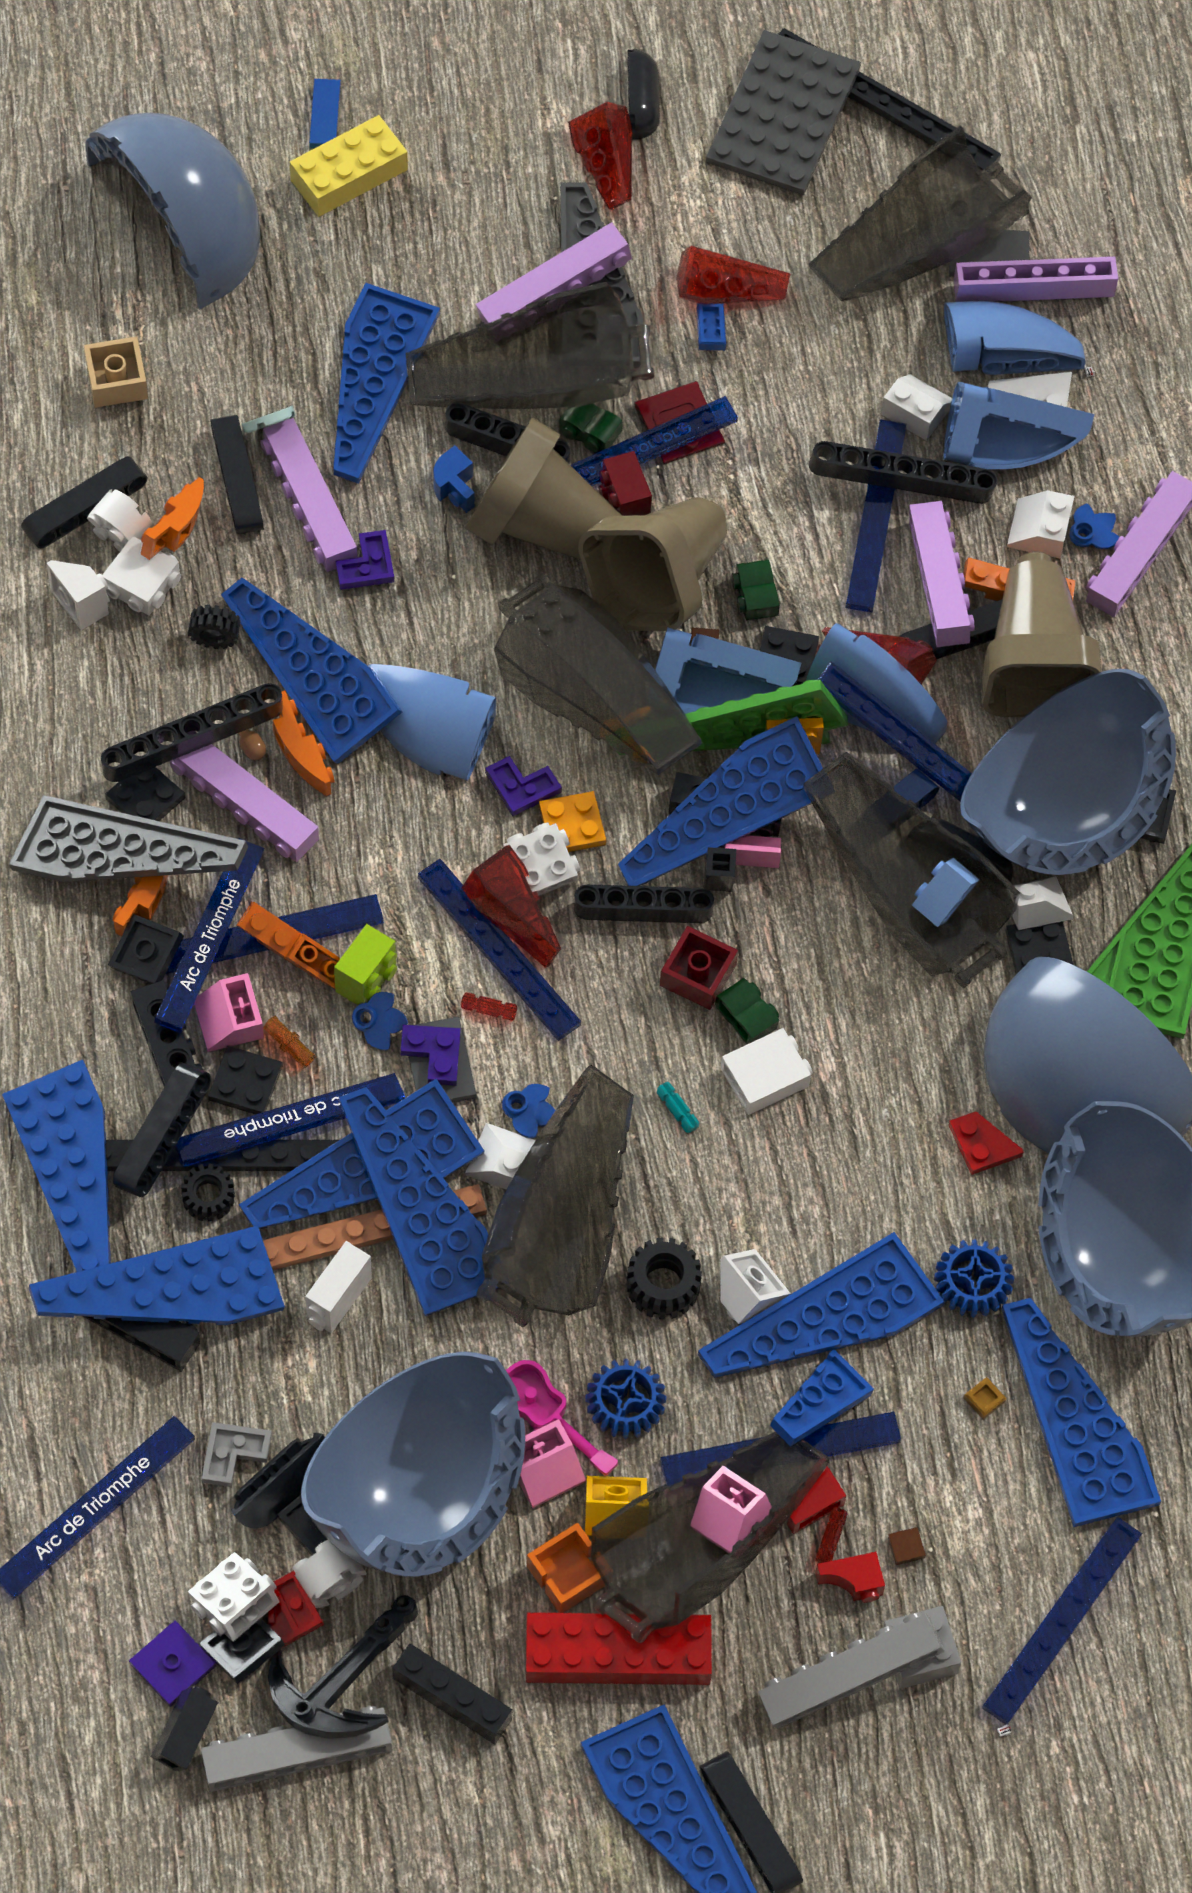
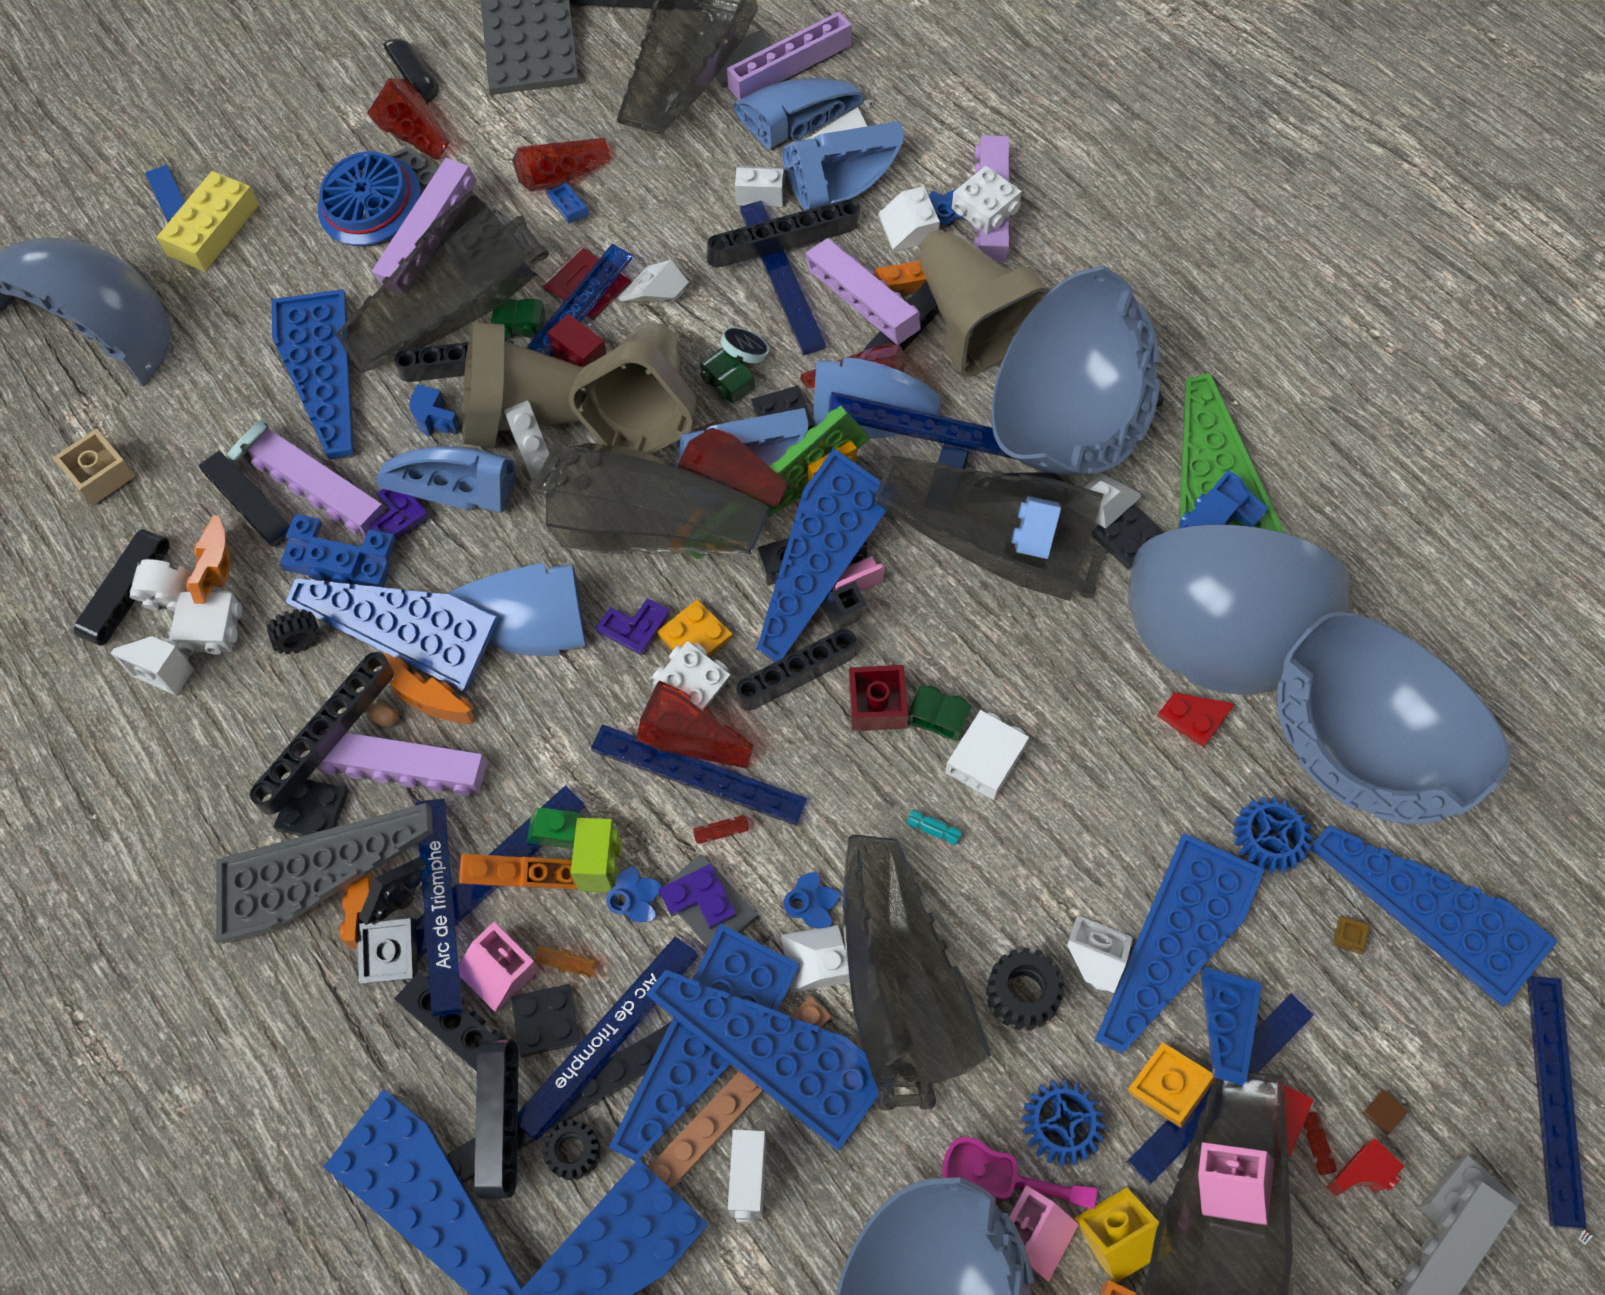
camera: 25 degrees left, 0 degrees up
(177, 901) = (392, 891): none -> black plate
(286, 579) = (336, 560): none -> blue bracket
(341, 922) = (552, 828): none -> green torso
(464, 568) = (451, 476): none -> medium blue panel
(514, 219) = (367, 194): none -> blue piece
(525, 553) = (527, 436): none -> white plate
(692, 678) = (734, 465): none -> clear red wedge
(736, 1419) = (1171, 1084): none -> light orange plate
(745, 458) = (656, 283): none -> white slope
(791, 568) = (745, 344): none -> tile
(1124, 544) = (986, 200): none -> white brick
(1137, 967) = (1225, 502): none -> blue bracket

